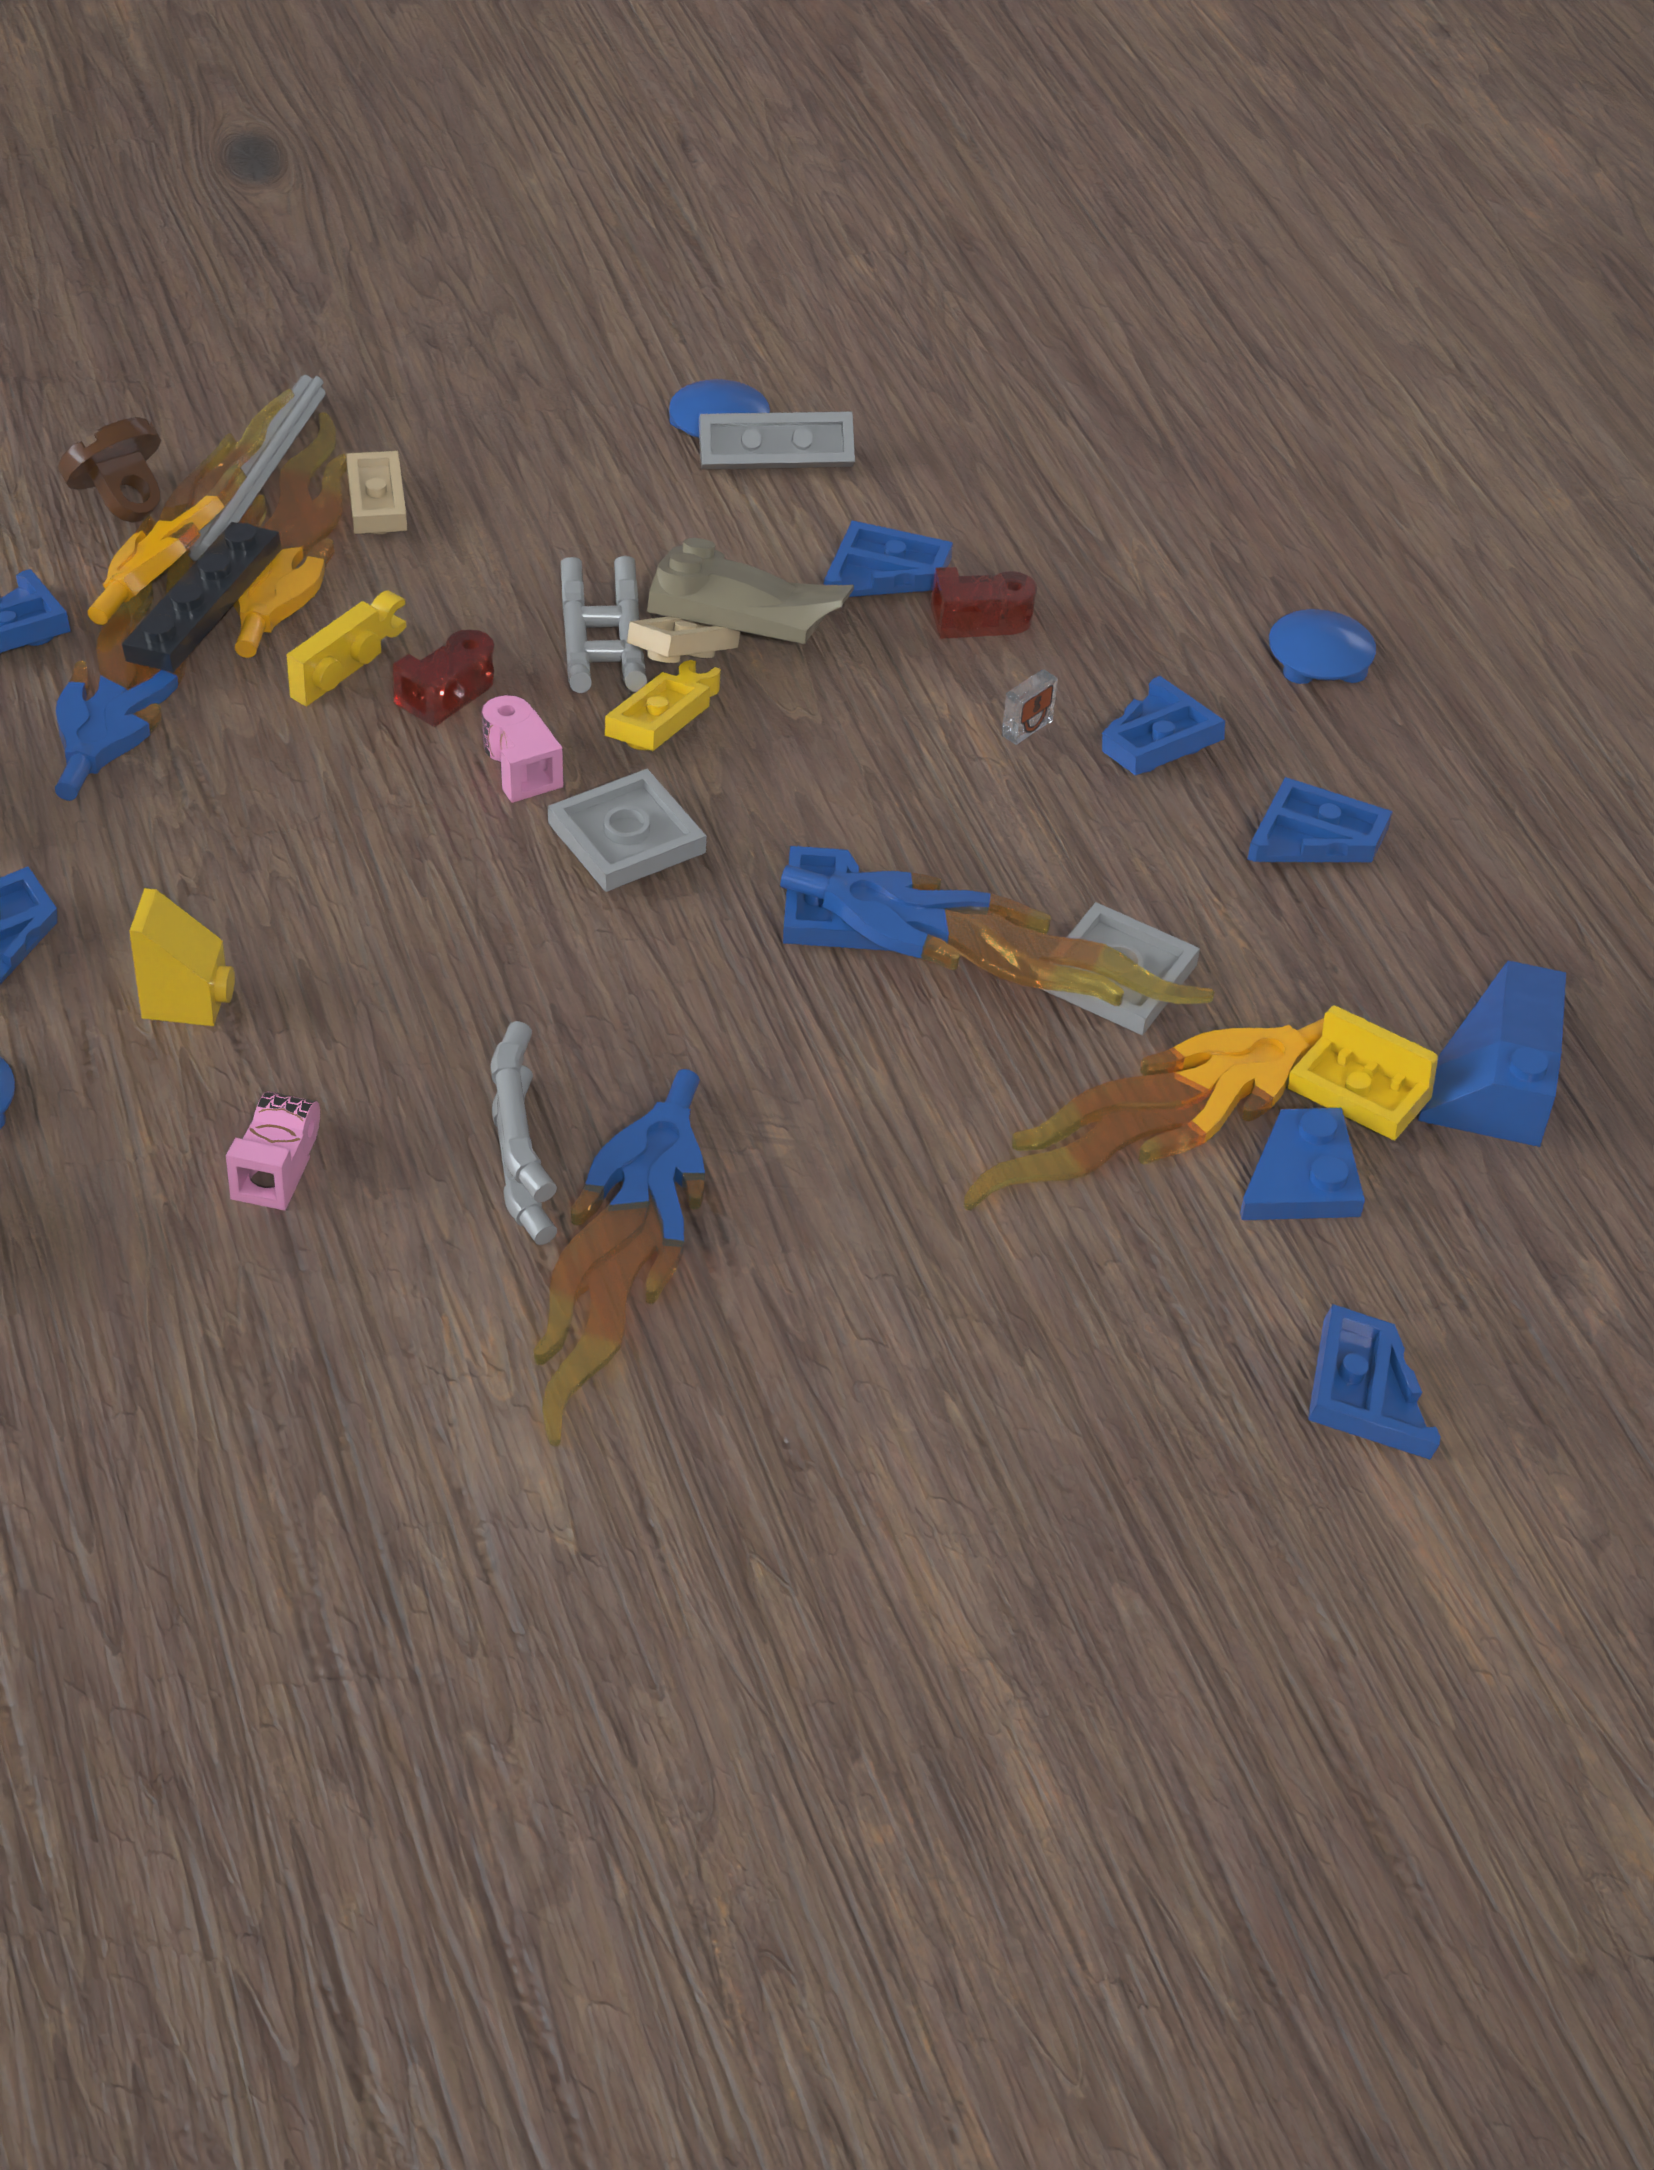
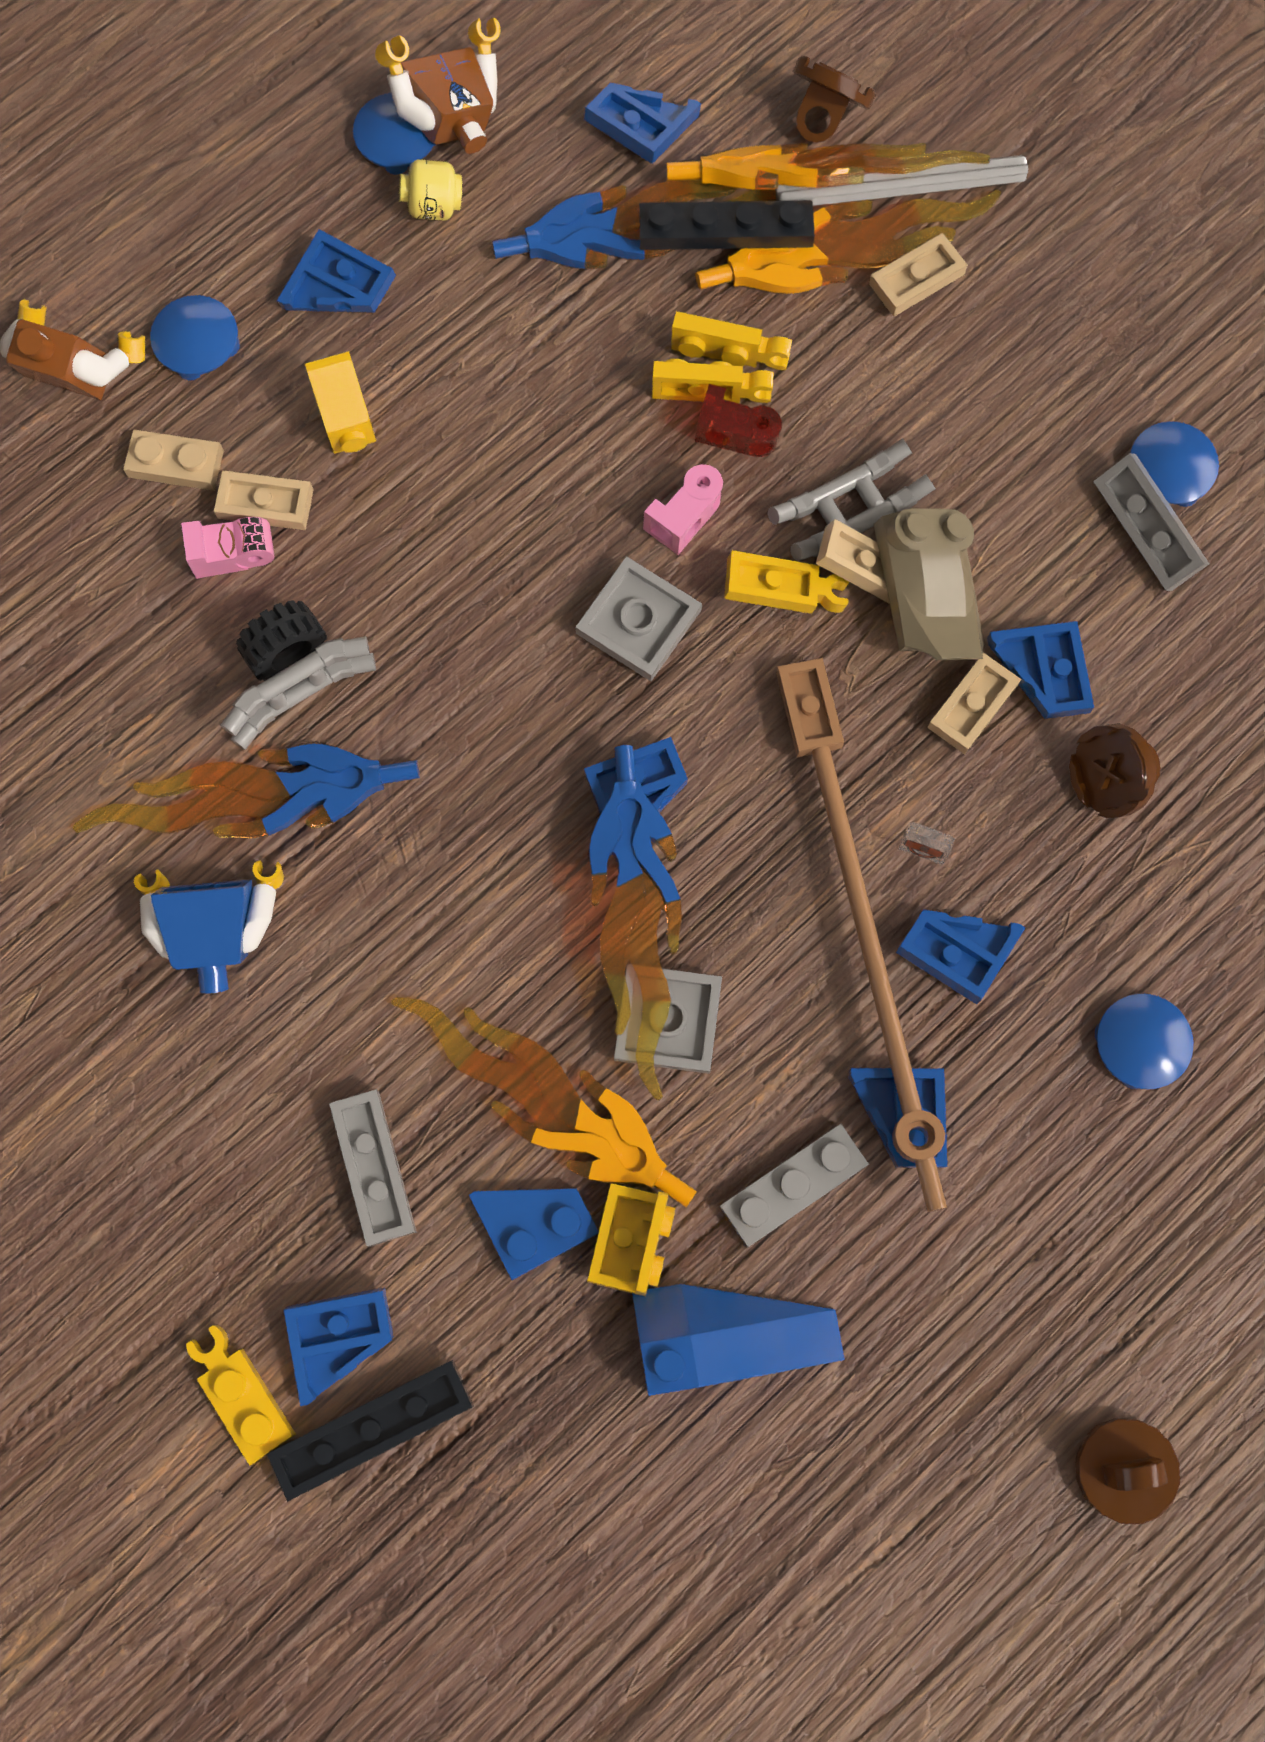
camera: 70 degrees right, 30 degrees up
(107, 1170) = (173, 460): none -> tan plate
(229, 1096) = (276, 499): none -> tan plate
(370, 687) = (689, 381): none -> yellow plate
(453, 1119) = (279, 638): none -> black tyre
(774, 1323) = (207, 922): none -> blue torso
(855, 740) = (817, 733): none -> medium nougat bar
(893, 624) = (974, 703): none -> tan plate
(982, 603) = (1035, 760): clear red leg -> none
(1034, 537) = (1114, 770): none -> reddish brown tile
(1171, 1278) = (372, 1168): none -> light grey plate
(1356, 945) = (793, 1185): none -> light grey plate
(1401, 1510) = (241, 1398): none -> yellow plate
(1495, 1390) = (370, 1430): none -> black plate

